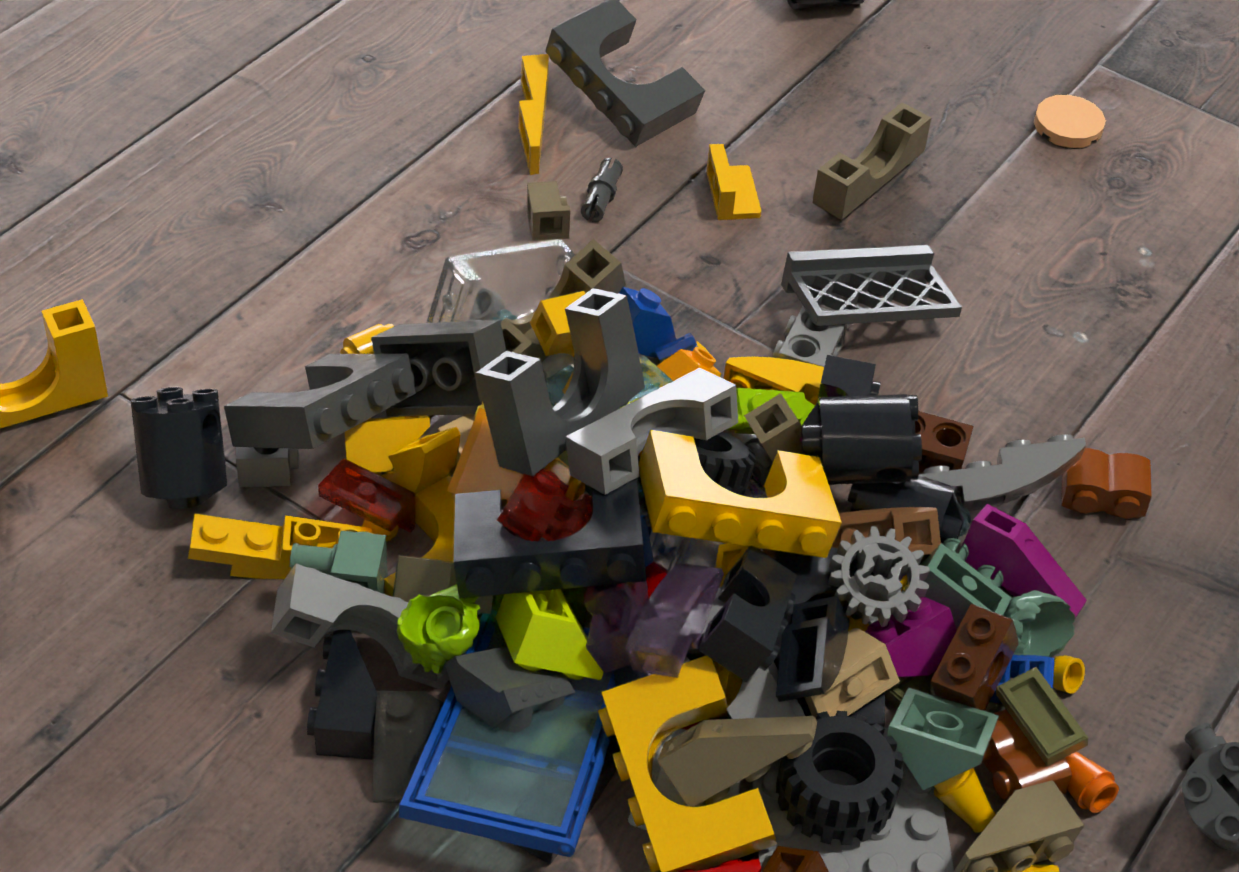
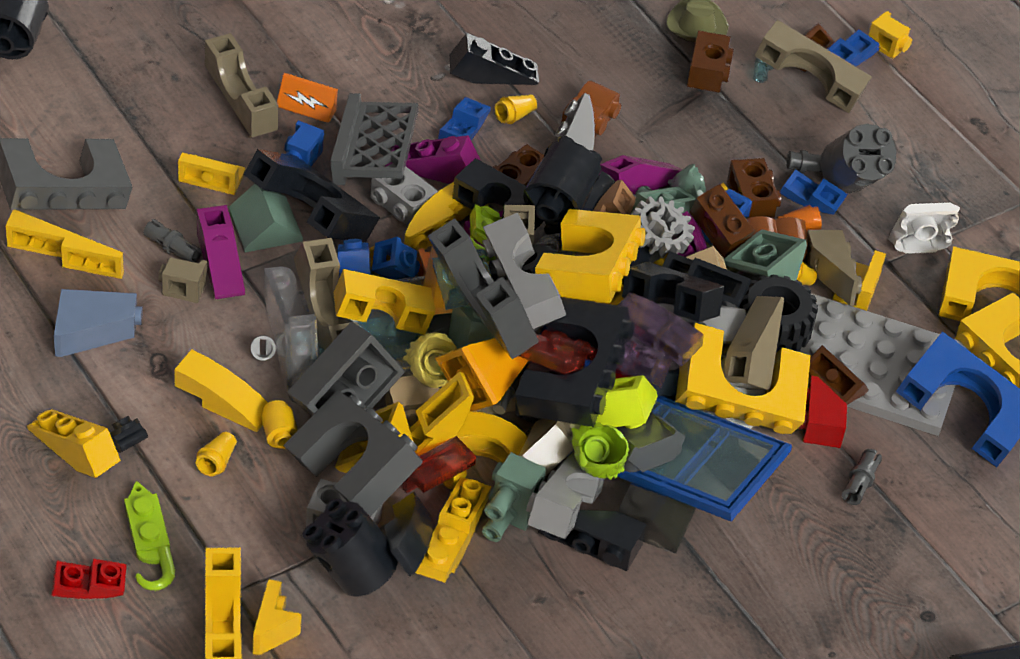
camera: 70 degrees left, 0 degrees up
(69, 423) = (273, 622): none -> yellow slope
(80, 271) = (96, 581): none -> red slope
(167, 300) = (149, 535): none -> lime plate
(232, 494) = (409, 532): none -> black slope
(259, 204) = (77, 441): none -> yellow slope
(298, 239) = (127, 433): none -> black plate
(302, 312) = (216, 454): none -> yellow cone
(396, 278) = (220, 390): none -> yellow slope
(439, 162) = (94, 320): none -> sand blue slope
(609, 215) = (220, 251): none -> magenta slope
(692, 251) = (264, 220): none -> sand green slope
(760, 246) = (334, 211): none -> black arch
(821, 235) = (305, 143): none -> blue brick
(897, 359) = (440, 158): none -> magenta slope
(906, 219) = (307, 98): none -> orange slope
(995, 374) = (466, 119): none -> blue slope
(1042, 716) = (770, 211): olive tile -> none
(1049, 409) = (513, 108): none -> yellow cone
(1105, 364) = (490, 64): none -> black slope
(1107, 698) = (755, 182): none -> reddish brown brick
(1158, 782) = (807, 192): none -> blue slope

